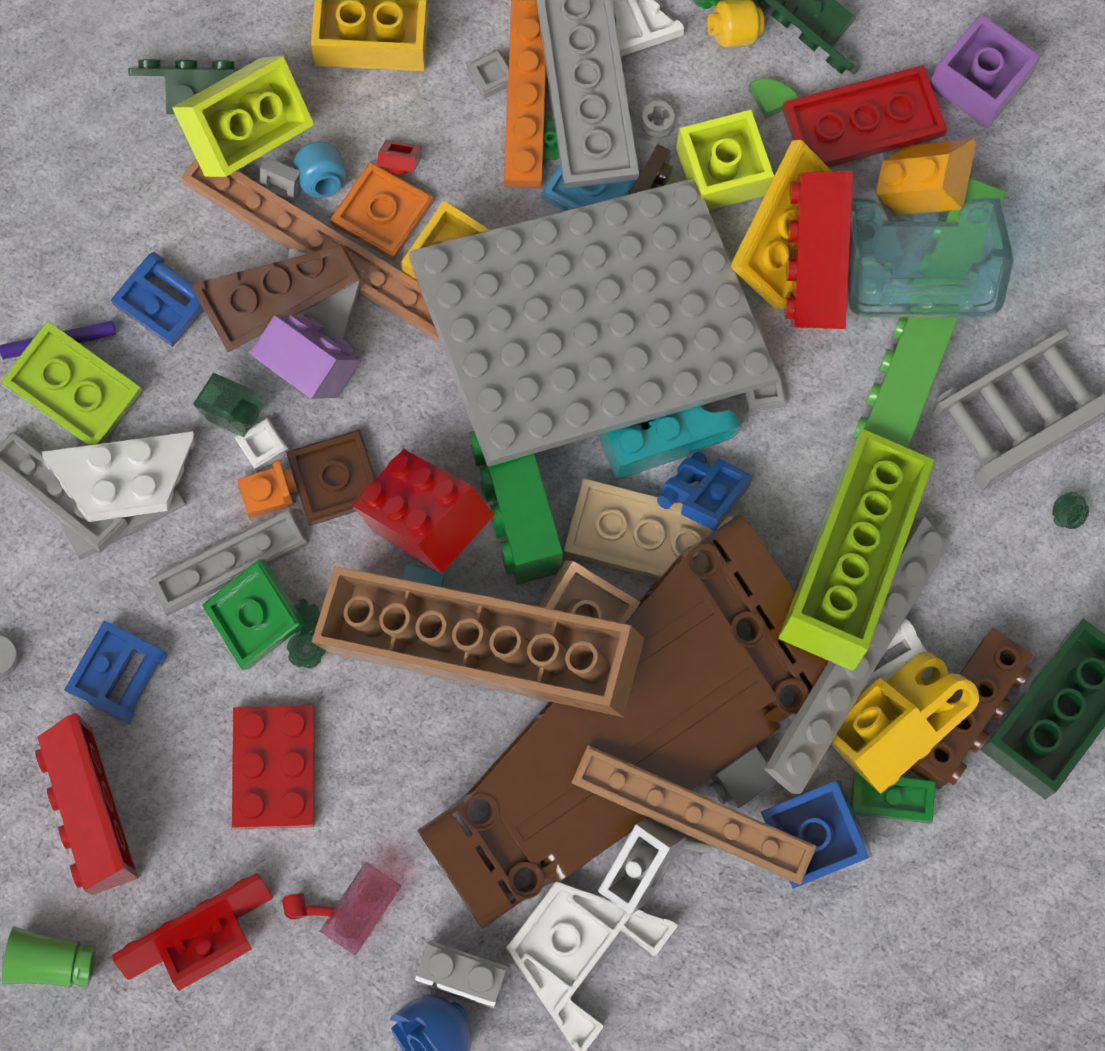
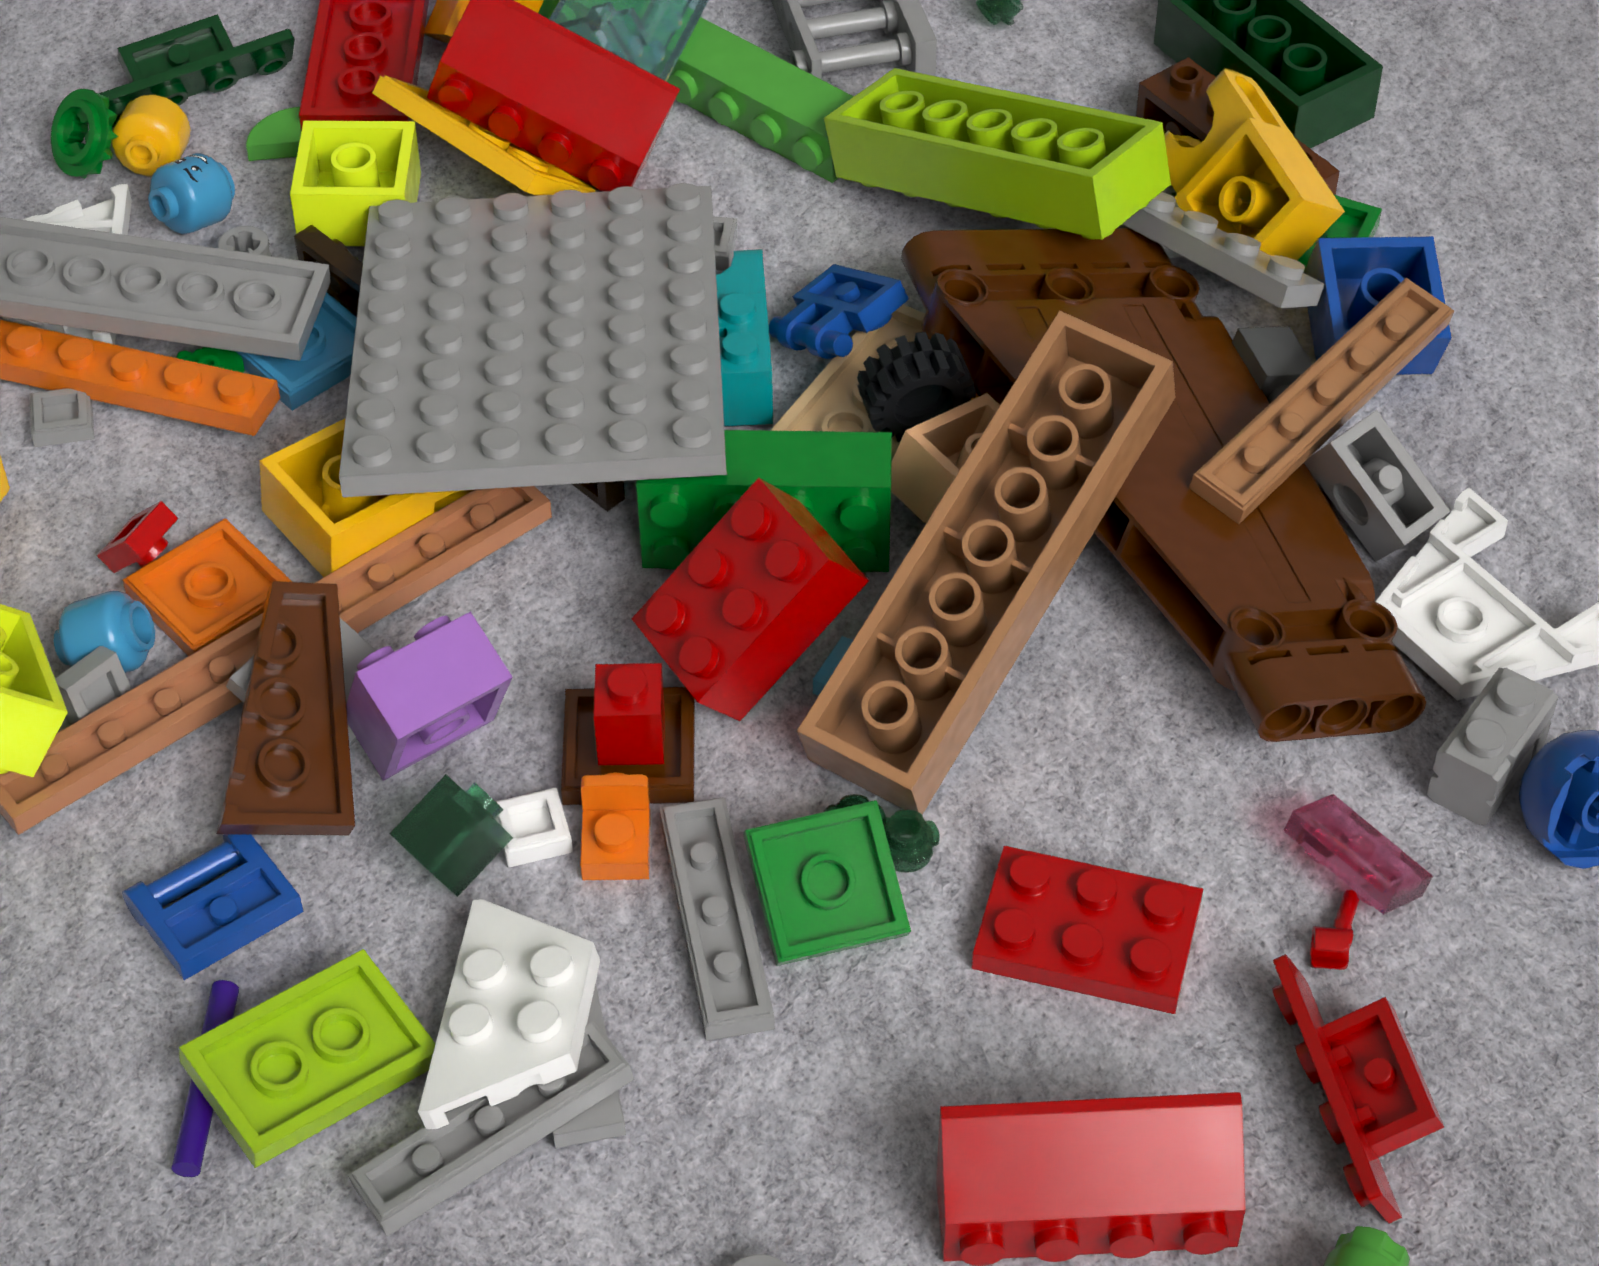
camera: 70 degrees left, 25 degrees down
(104, 666) = (840, 1123): blue plate -> none
(329, 470) = (629, 714): none -> red brick
(625, 557) = (914, 382): none -> black tyre
(690, 68) = (191, 193): none -> dark azure head

